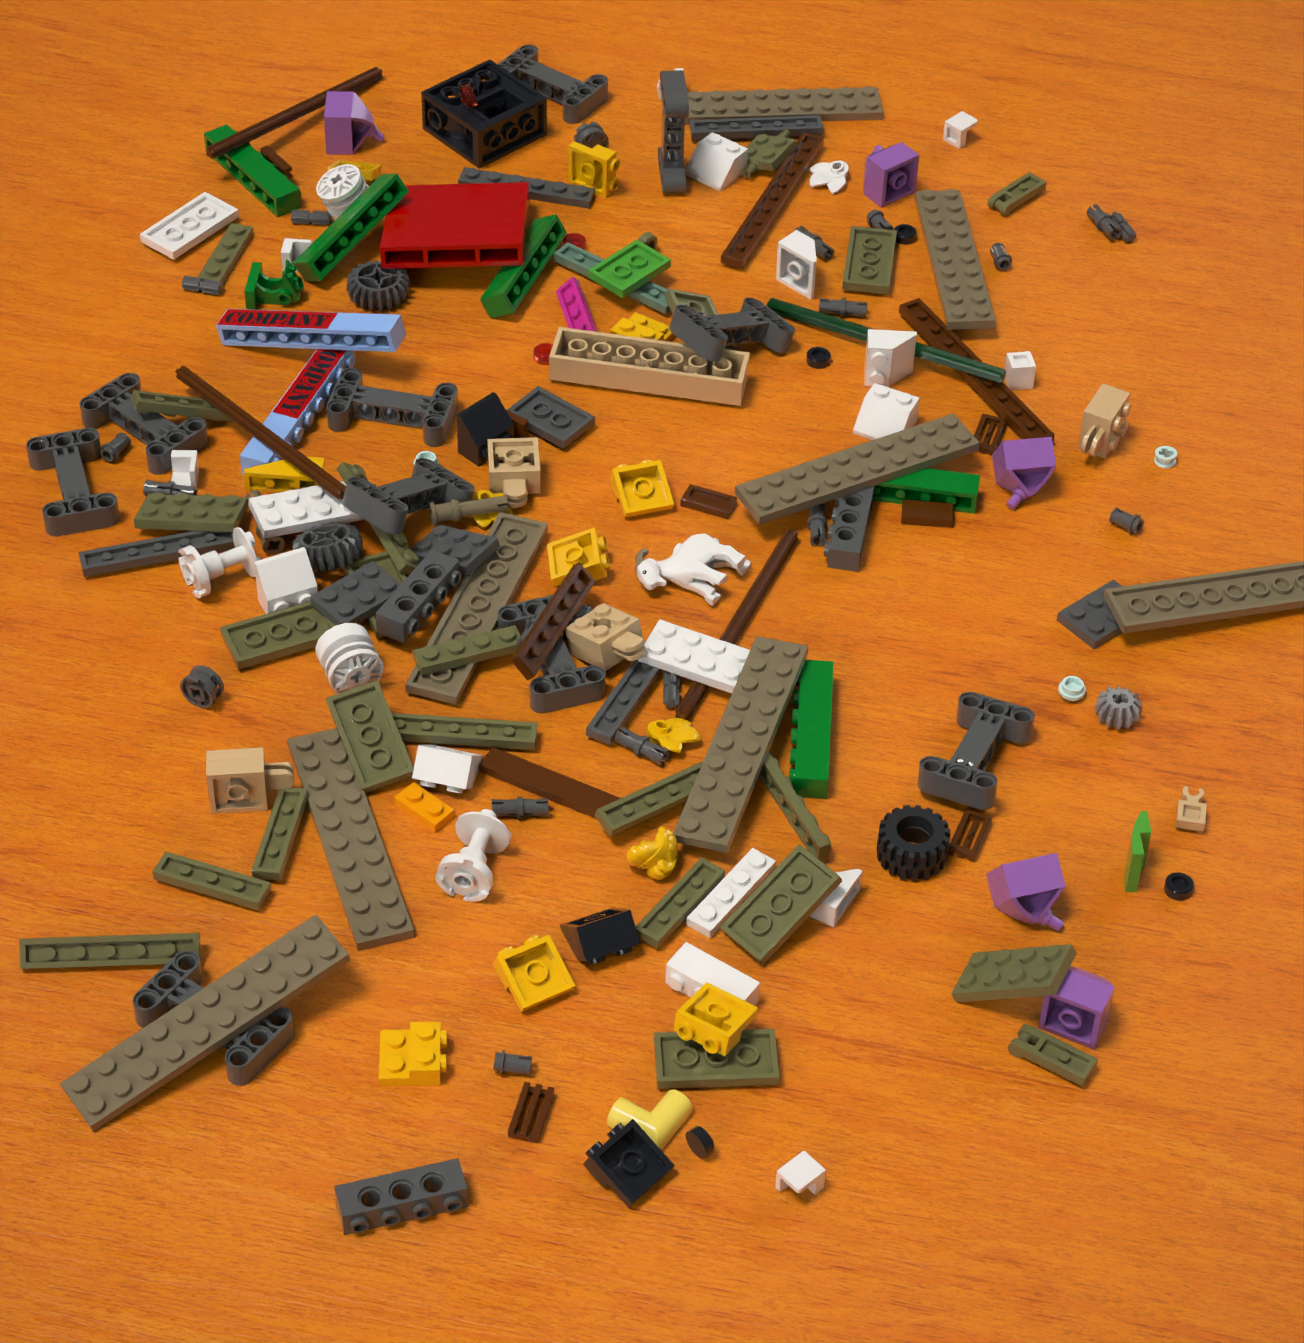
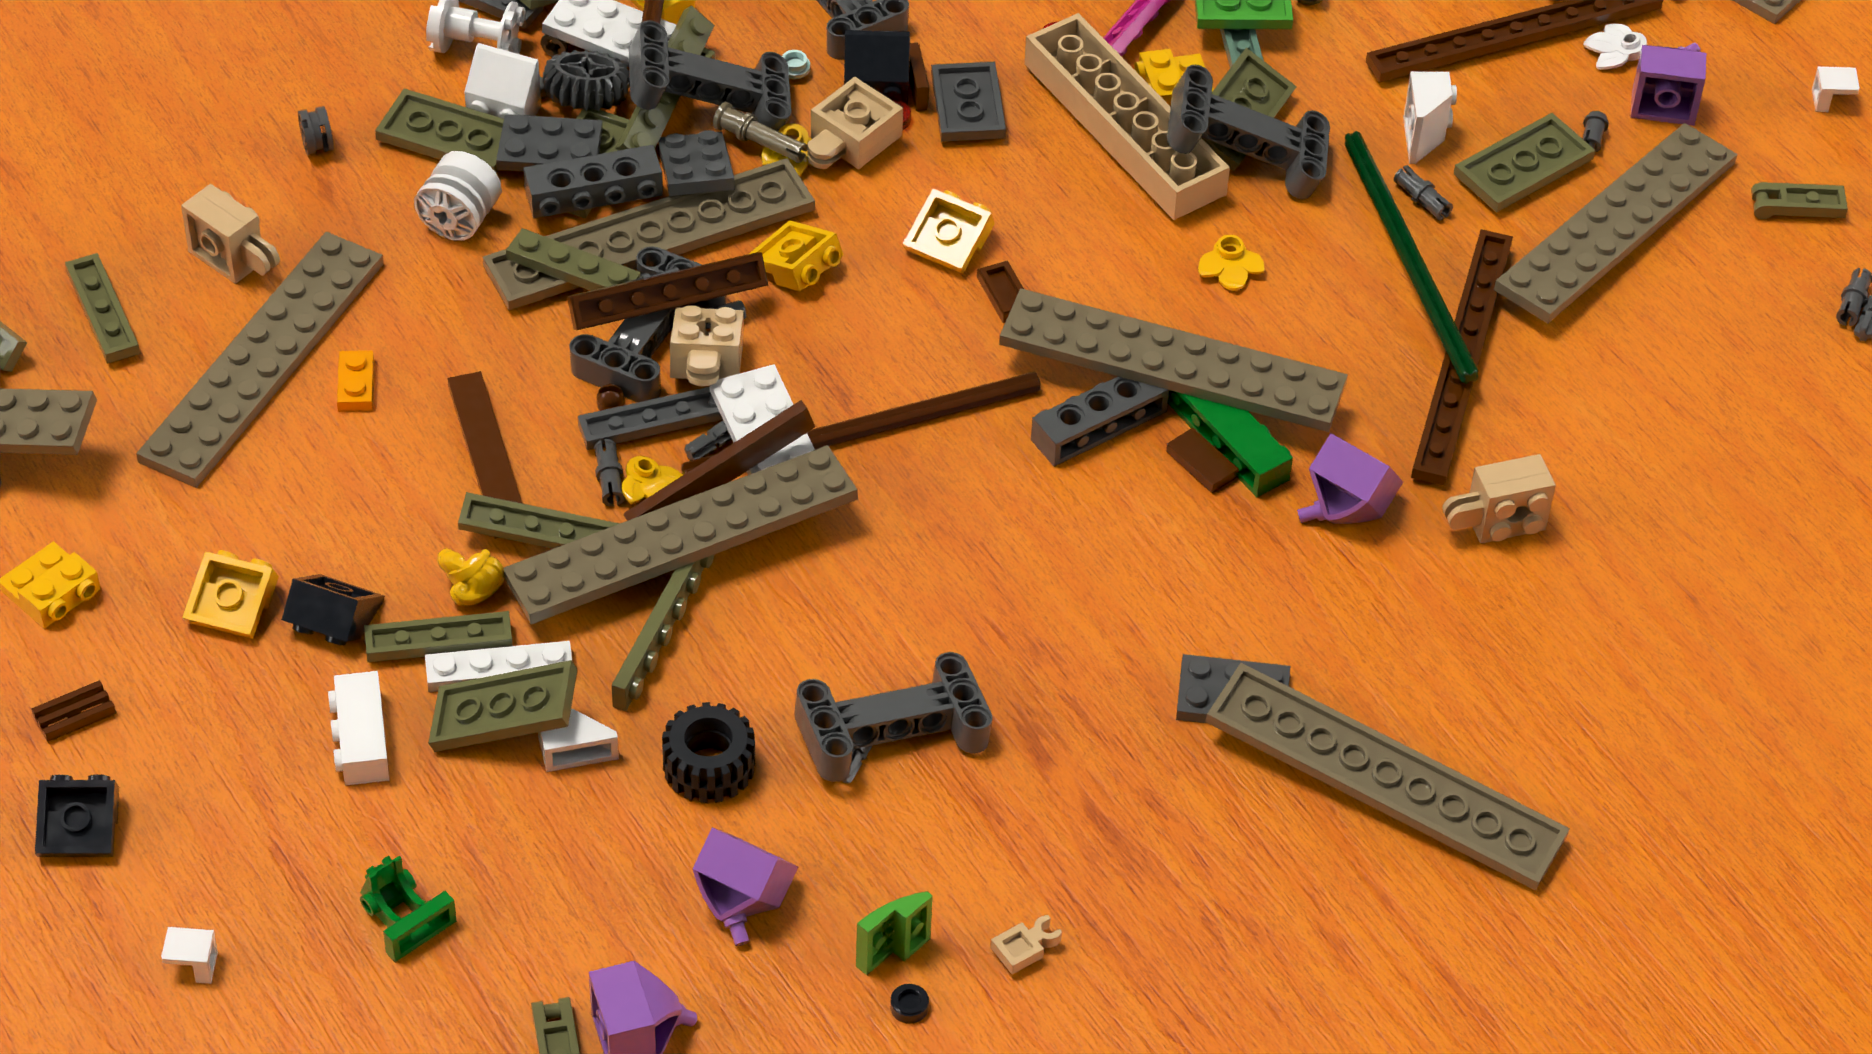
camera: 45 degrees right, 5 degrees up
(280, 834) = (206, 310): olive plate -> none
(370, 736) = (382, 279): olive plate -> none
(446, 767) = (415, 356): white slope -> none
(466, 731) = (470, 332): olive plate -> none
(467, 870) = (304, 455): white piece -> none
(512, 1063) = (108, 651): dark grey pin -> none
(520, 807) = (429, 444): dark grey pin -> none
(585, 712) = (609, 397): none -> reddish brown hinge
(659, 1123) = (145, 807): light yellow brick -> none
(691, 1066) = (273, 795): olive plate -> none
(692, 565) = (889, 338): white animal -> none
(700, 1142) = (157, 851): tile -> none
(714, 1019) = (298, 754): yellow plate -> none
(717, 689) = (732, 460): none -> reddish brown tile
(800, 406) = (1230, 263): none -> yellow plate
(812, 730) = (779, 577): green brick -> none
(817, 524) = (1075, 386): dark grey pin -> none
(818, 357) = (1324, 227): black tile -> none
(821, 248) = (1491, 105): dark grey pin -> none
(885, 412) = (1300, 329): white slope -> none
(888, 356) = (1376, 272): white slope -> none
(889, 1052) = (392, 885): none -> green tile
(905, 234) = (1609, 162): black tile -> none
(964, 849) = (787, 797): reddish brown tile -> none
(993, 420) = (1389, 432): reddish brown tile -> none
(1001, 259) = (1673, 260): dark grey pin -> none
(1014, 973) = (604, 938): olive plate -> none
(1020, 370) = (1505, 384): white panel -> none
(1072, 688) = (1086, 737): light aqua plate -> none
(1118, 707) = (1099, 790): light grey gear -> none
(1131, 522) = (1397, 625): dark grey pin -> none
(1165, 457) = (1546, 597): light aqua bush -> none

